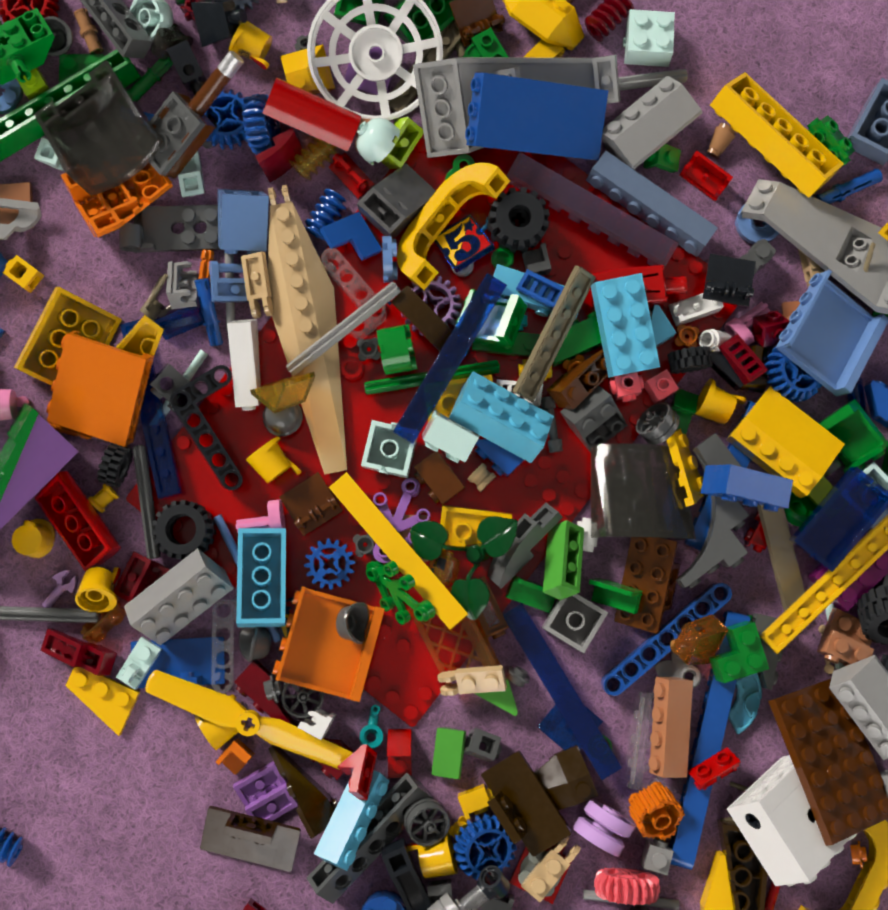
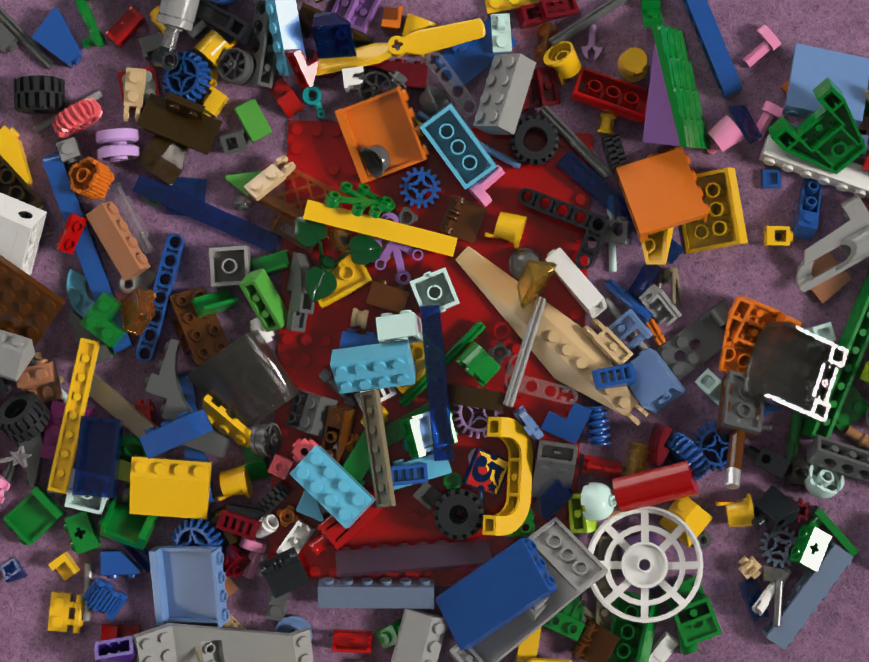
camera: 140 degrees right, 5 degrees up
(260, 238) = (626, 375): none -> blue slope
(305, 781) = (332, 36): none -> clear blue slope
(418, 172) = (552, 499): none -> clear blue slope

